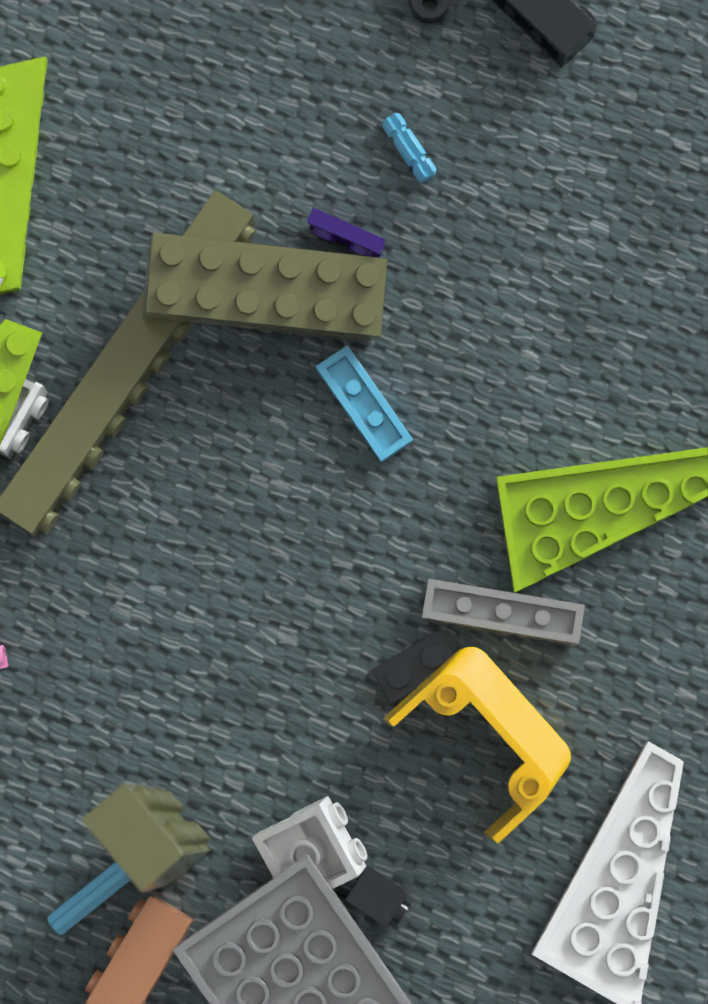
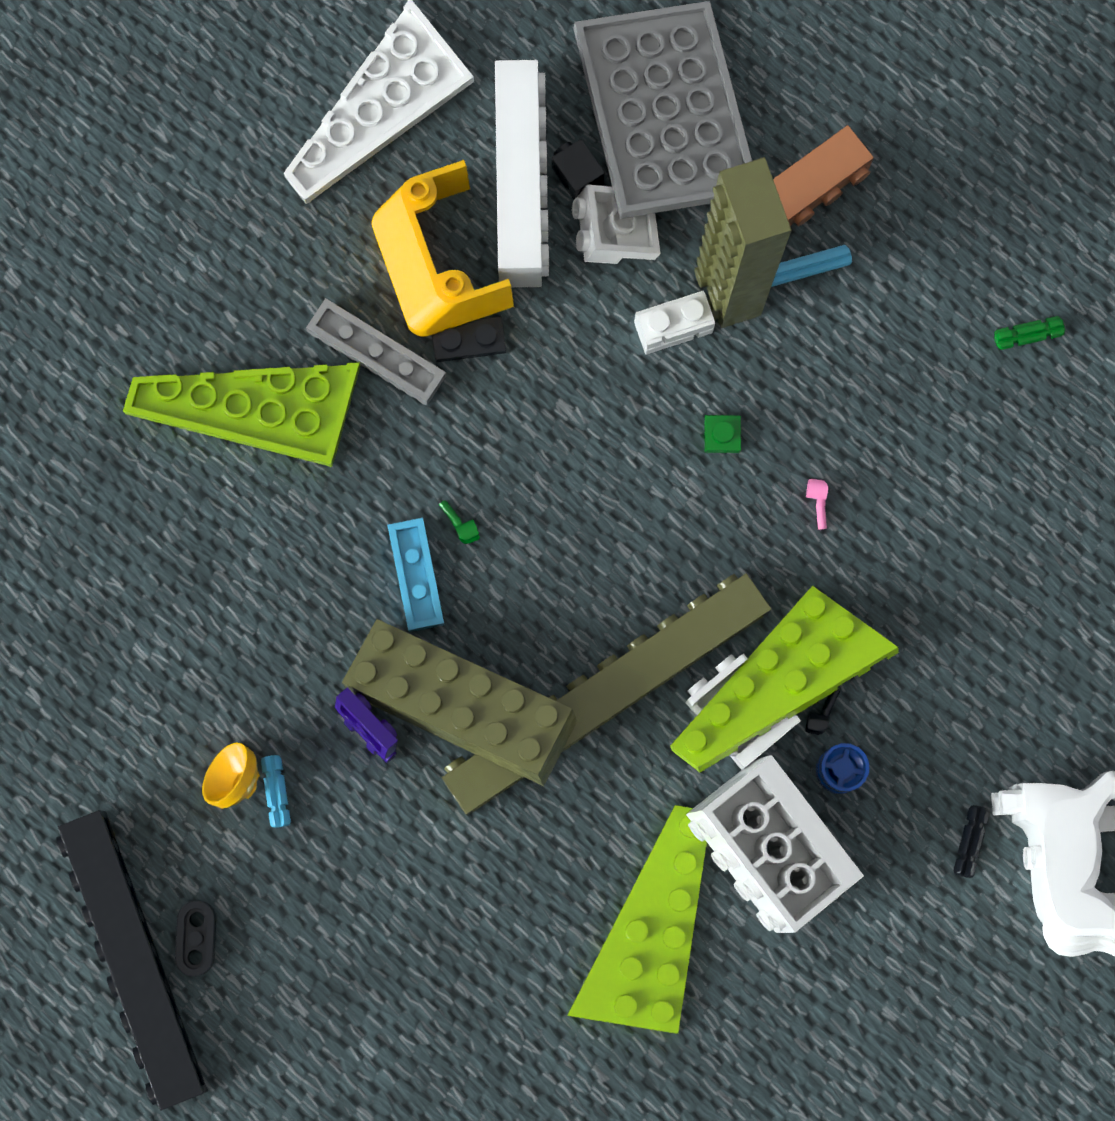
camera: 160 degrees left, 0 degrees up
(113, 676) = (722, 434): none -> green plate
(207, 769) = (674, 322): none -> white brick
(333, 468) = (466, 531): none -> green hand
(437, 861) = (519, 162): none -> white brick
(463, 137) = (231, 776): none -> yellow piece

